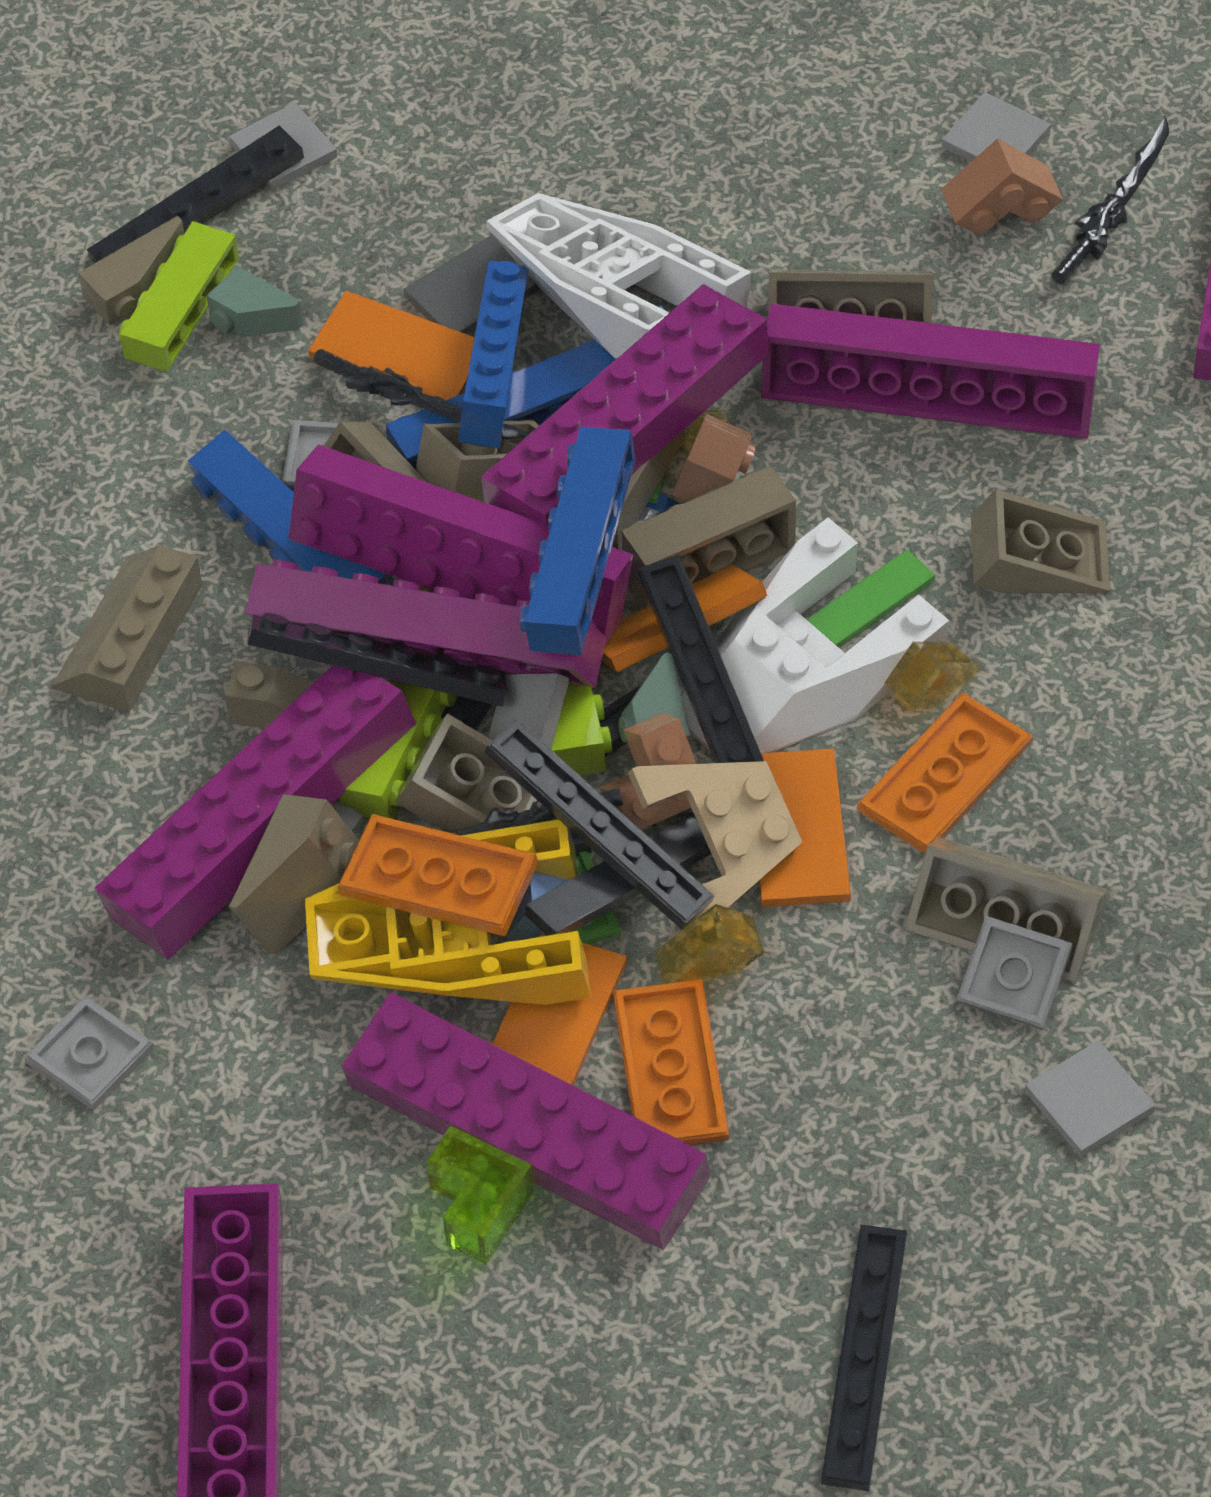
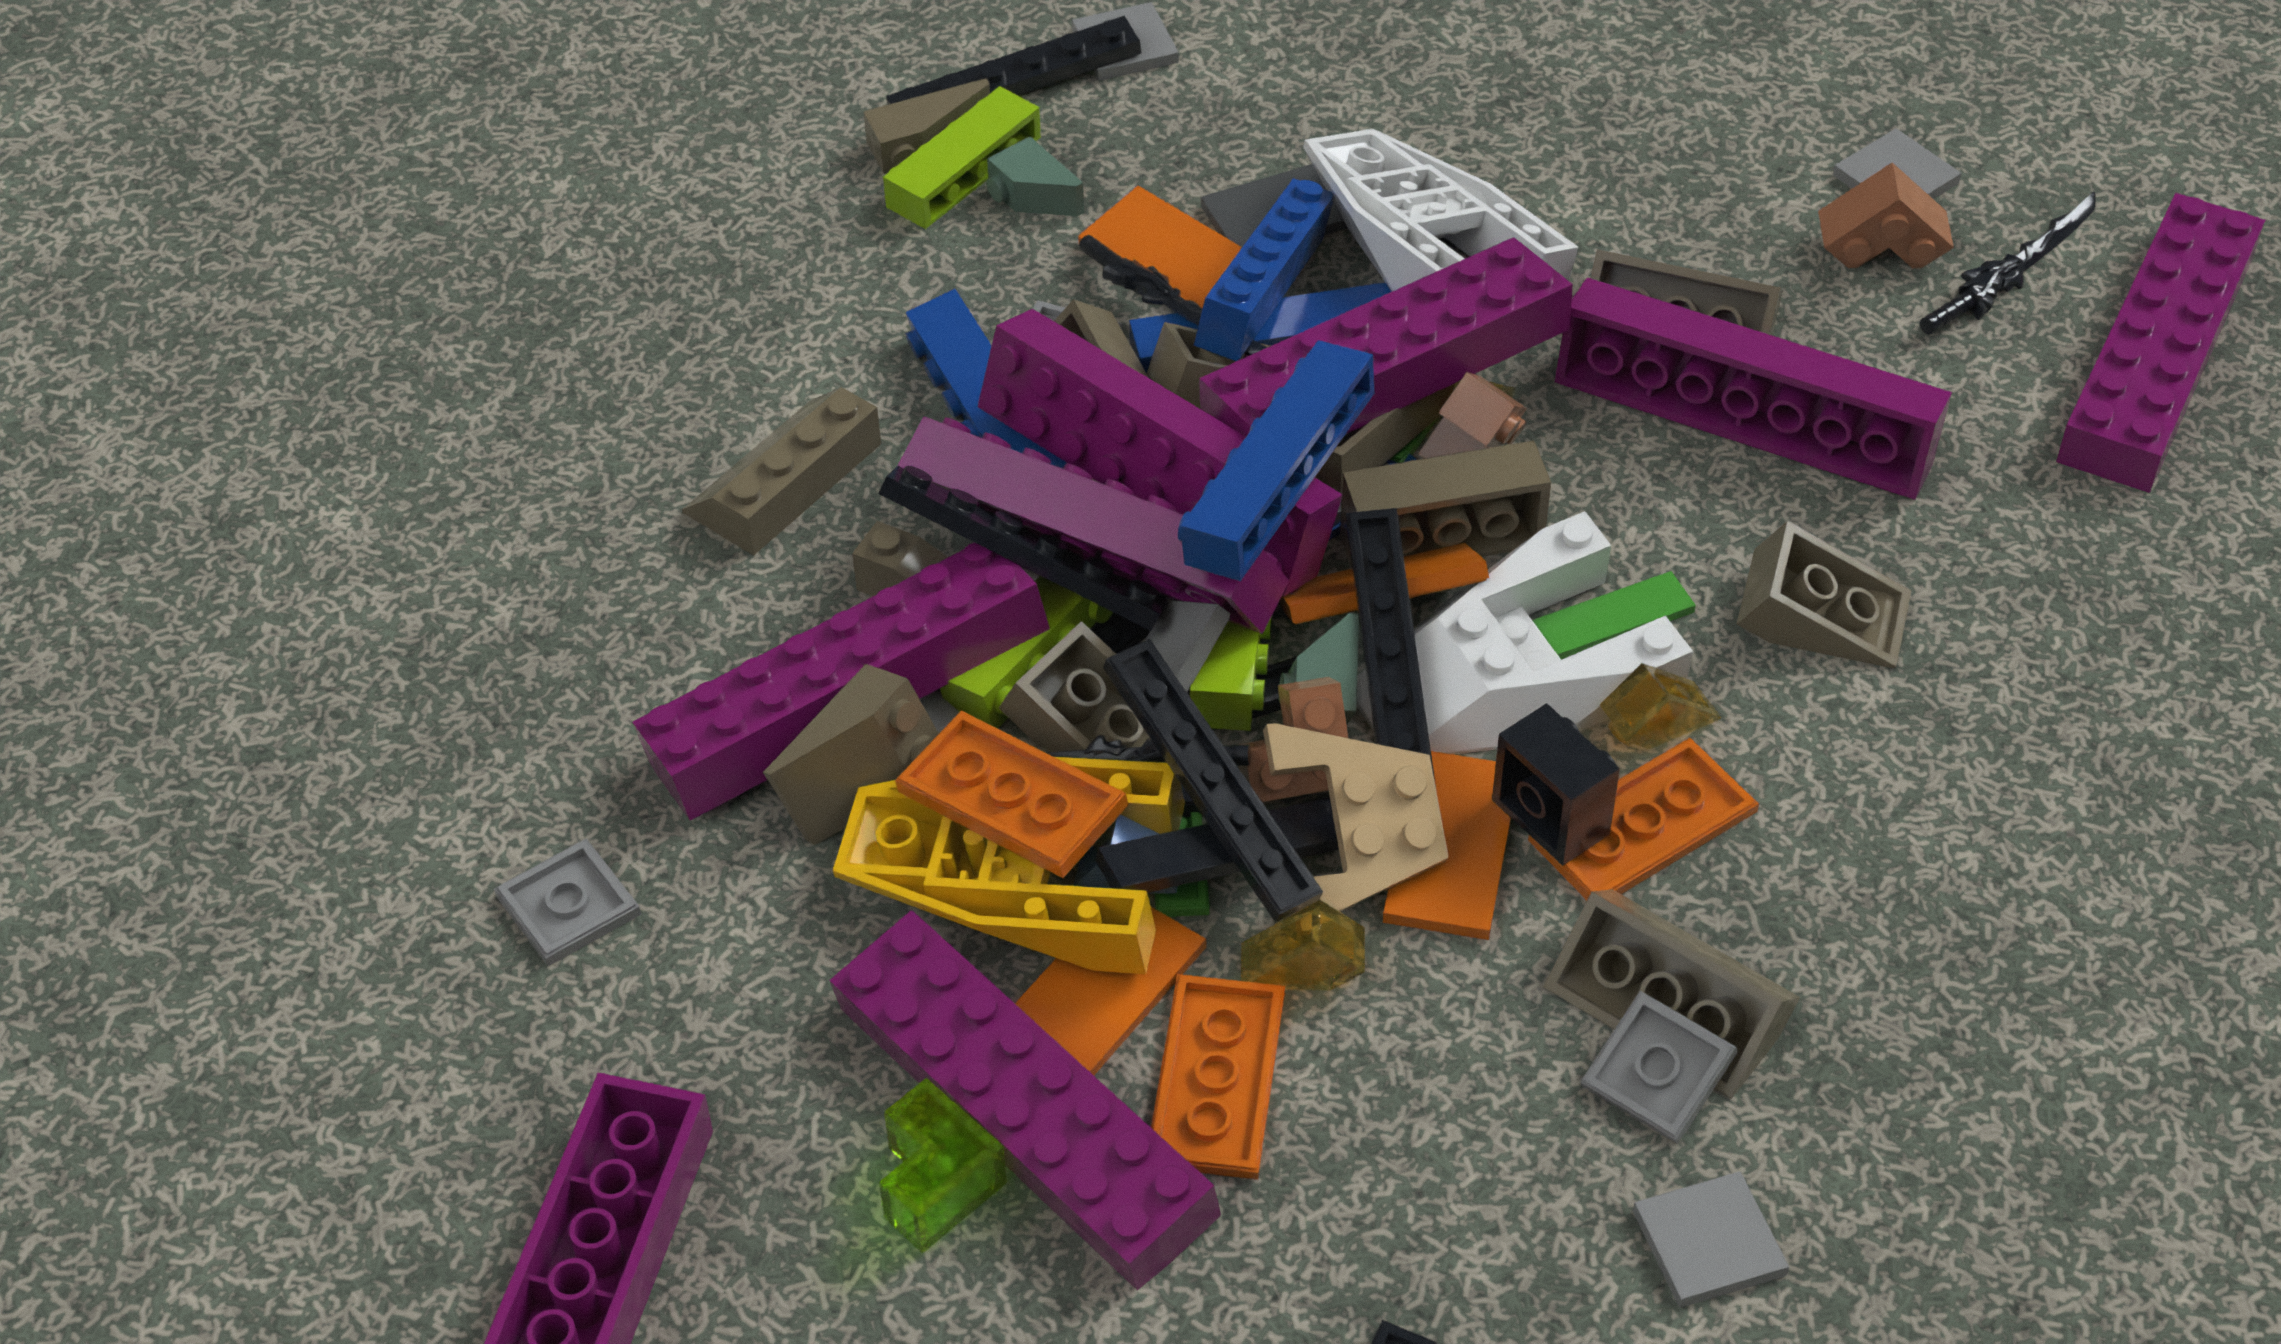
camera: 15 degrees right, 5 degrees down
(872, 761) = (1555, 783): none -> black brick

